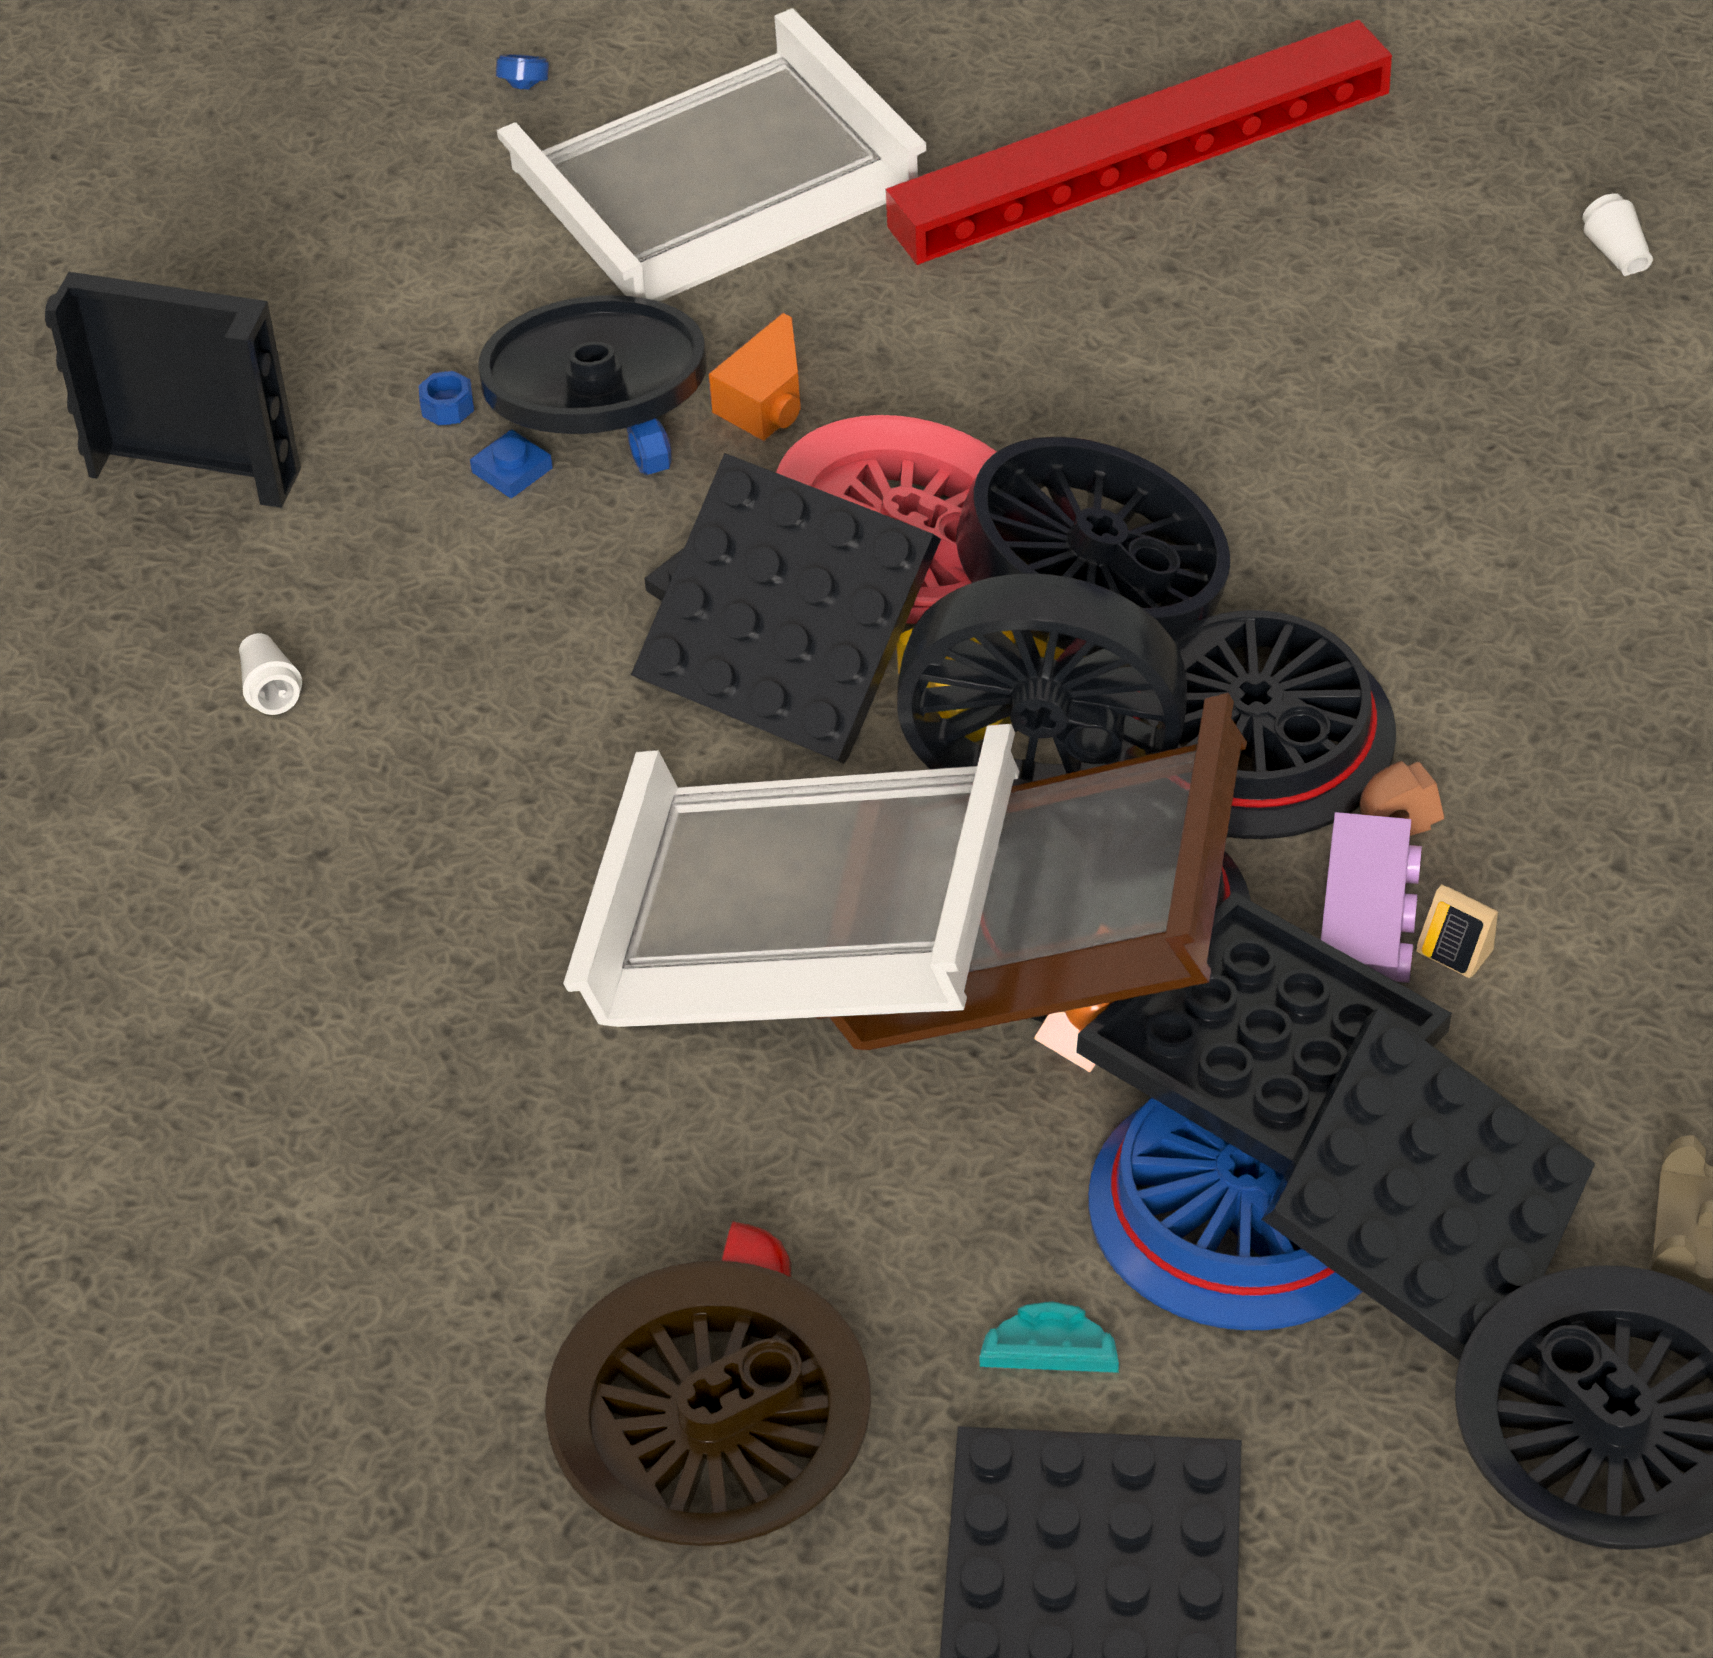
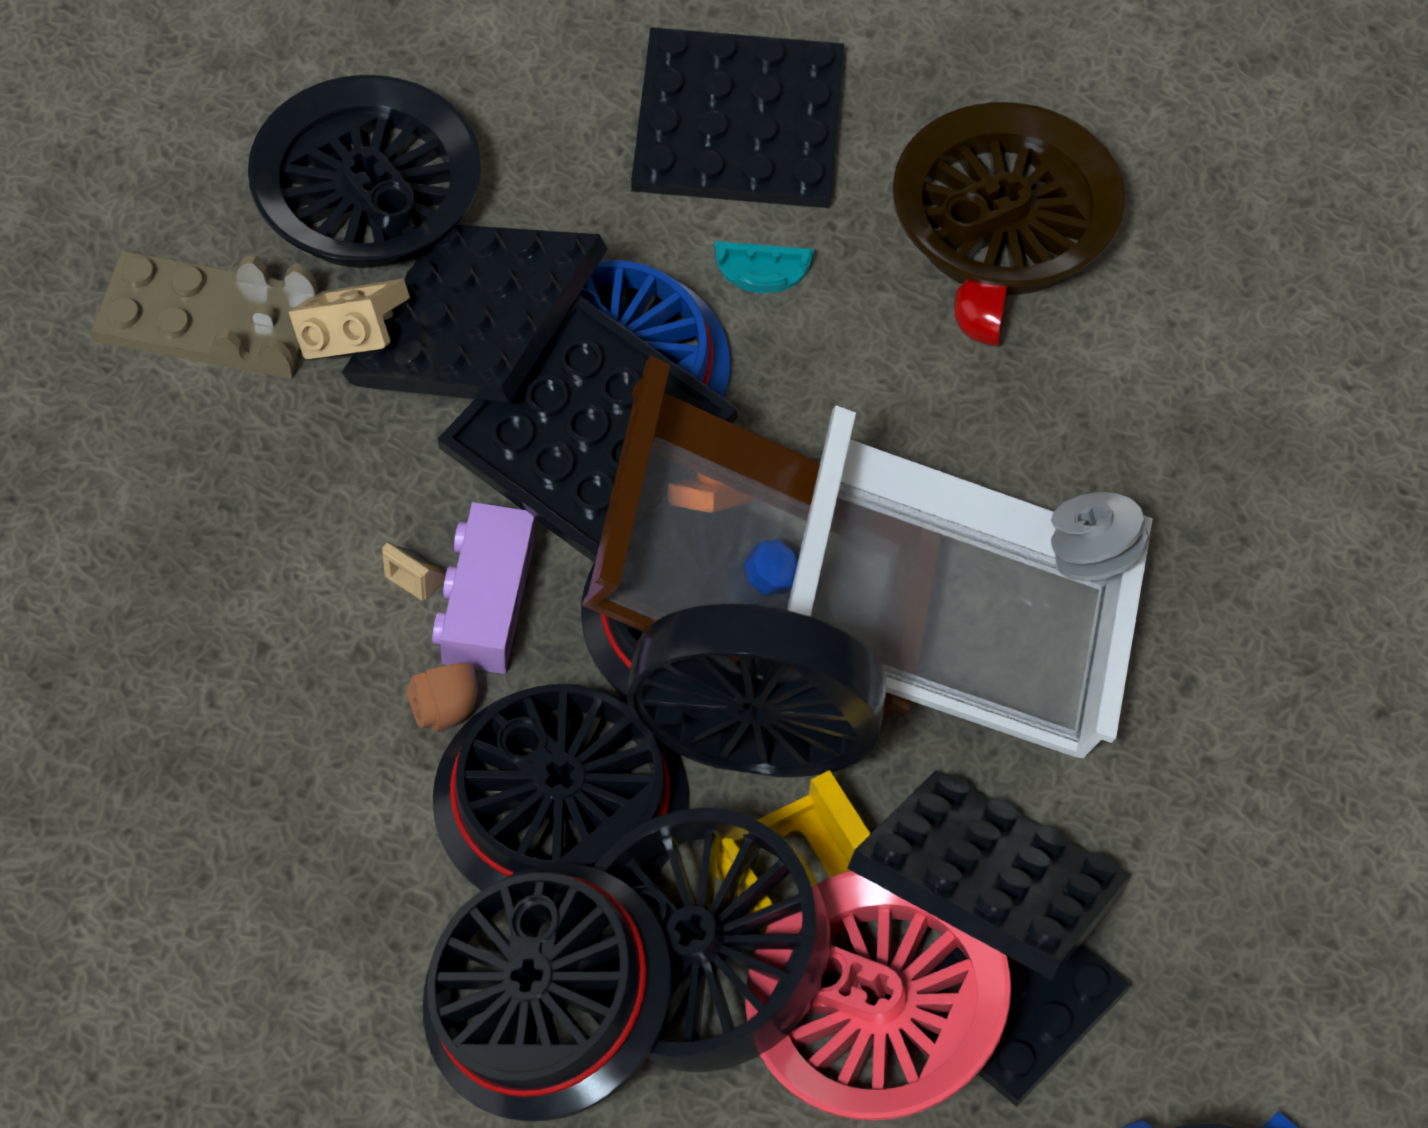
camera: 175 degrees right, 10 degrees up
(603, 943) = (1098, 535): none -> light grey piece
(1027, 861) = (771, 567): none -> blue tile
(1247, 529) = (538, 982): none -> black piece
(1598, 1201) = (347, 319): none -> tan bracket

